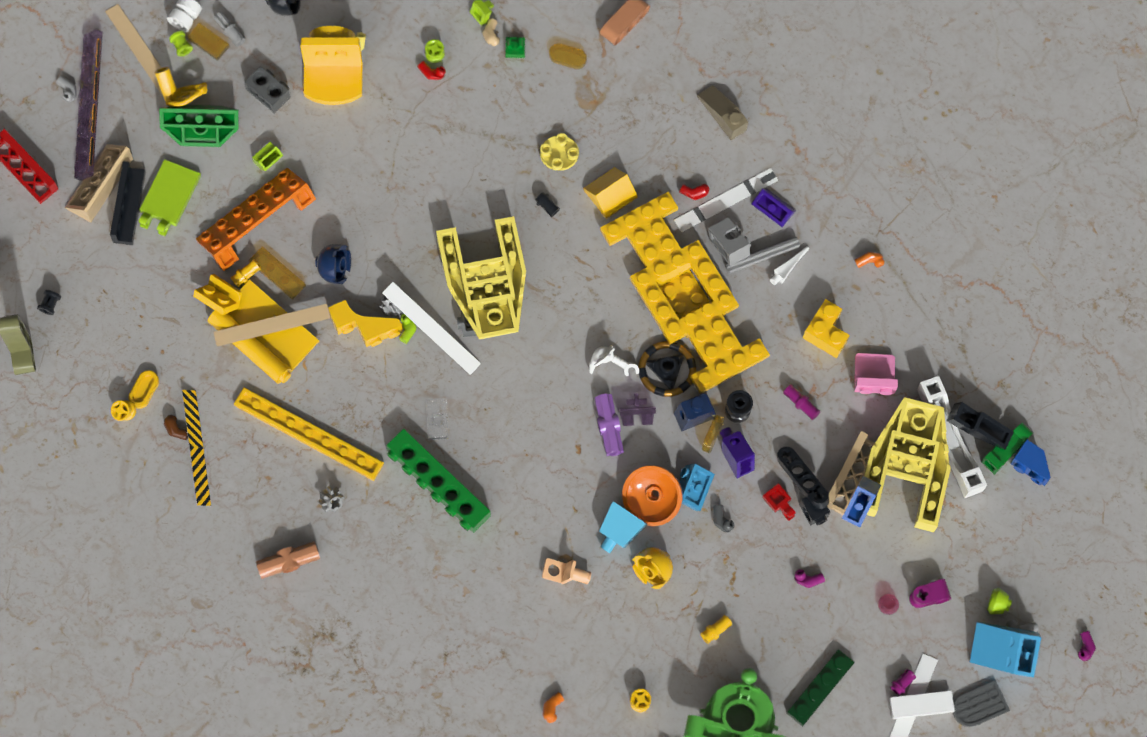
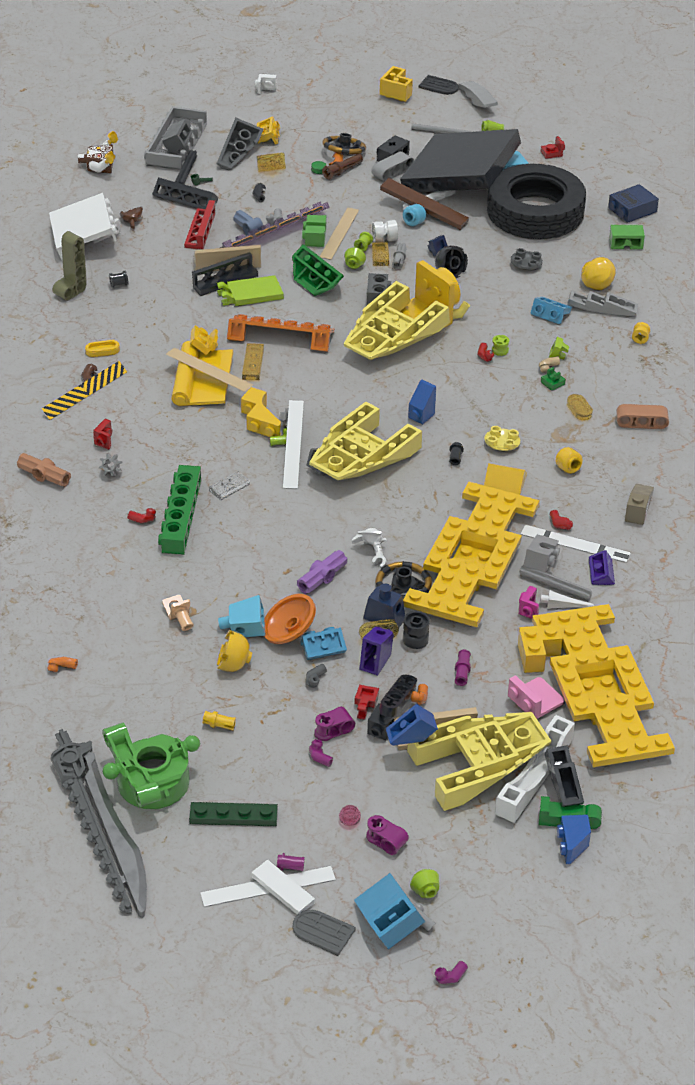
camera: 55 degrees right, 30 degrees down
(9, 73) = (258, 190): none -> black arm
(64, 122) = (247, 221): none -> sand blue piece
(119, 413) = (75, 343): yellow wheel -> none
(126, 72) = (314, 230): none -> bright green brick
(171, 93) = (324, 250): yellow piece -> none
(202, 72) = (354, 257): none -> lime cone
(243, 275) = (236, 344): yellow pin -> none
(267, 156) = (330, 317): lime piece -> none
(278, 474) = (102, 434): none -> red bracket
(308, 434) = (151, 436): yellow tile -> none
(333, 263) = (288, 376): dark blue cylinder -> none
(344, 134) = (387, 330): none -> light yellow wedge
(420, 517) = (142, 518): none -> red arm
(468, 182) = (422, 402): none -> blue slope
(632, 124) = (569, 460): none -> yellow head
(642, 696) = (115, 708): yellow wheel -> none
(647, 413) = (351, 577): clear purple hips -> none
(769, 295) = (527, 603): none -> dark pink bracket
(788, 543) = (333, 723): none -> magenta piece
(809, 459) = (421, 696): none -> orange arm
(870, 257) = (626, 640): orange arm -> none
(898, 325) = (593, 692): none -> yellow piece

